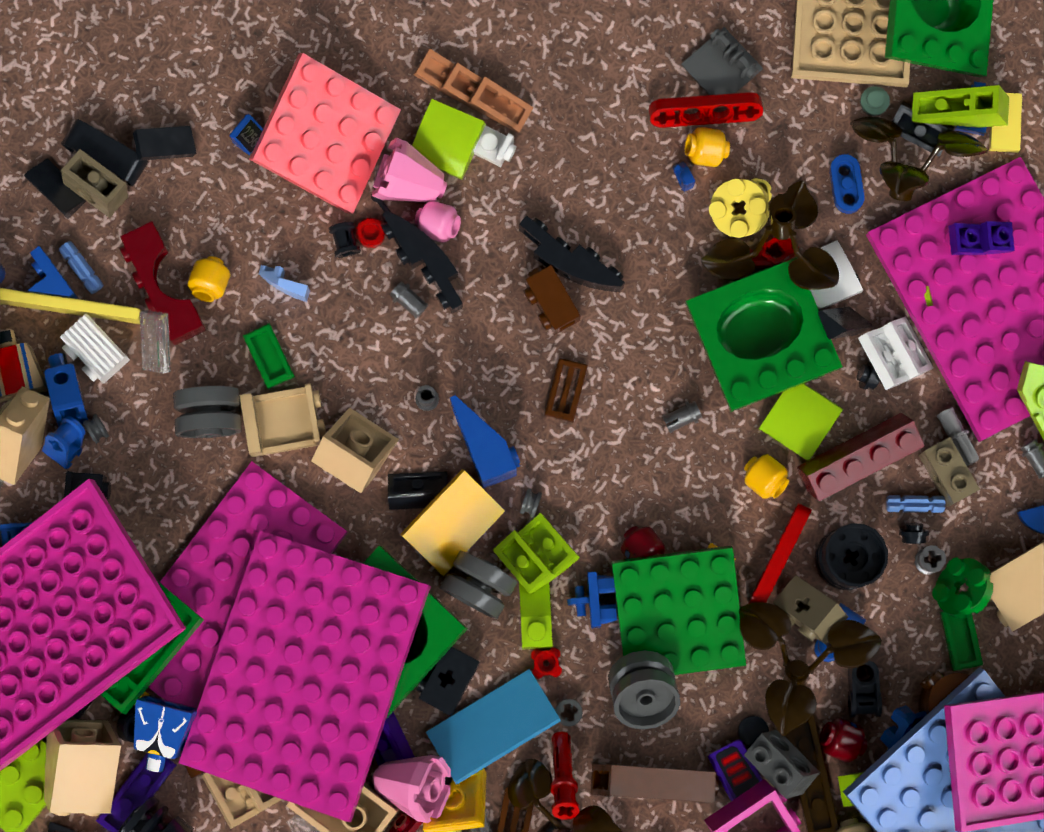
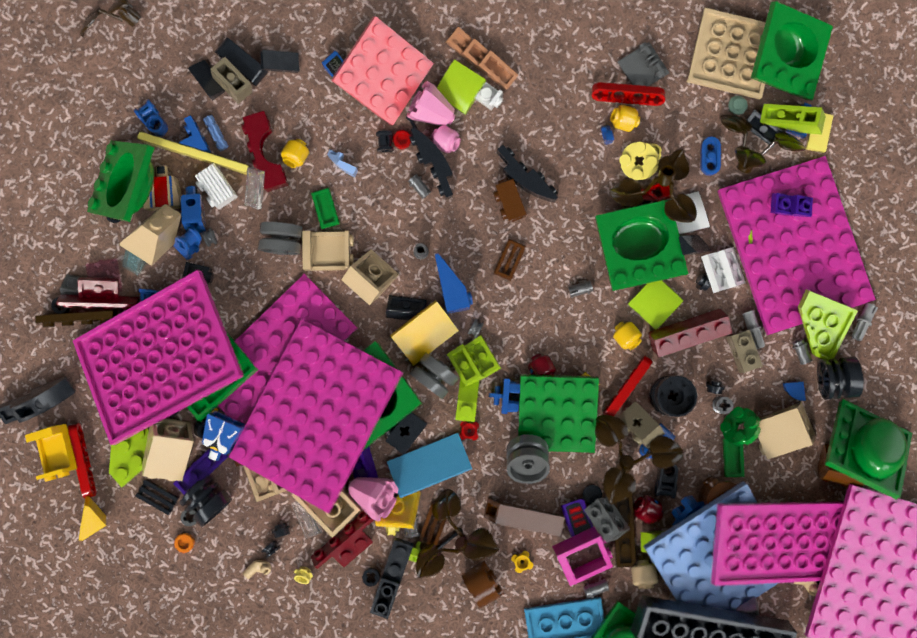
camera: 15 degrees right, 5 degrees up
(564, 785) = (467, 511): red pin -> none
(577, 716) = (483, 467): dark grey bush -> none
(915, 503) = (719, 367): medium blue axle -> none

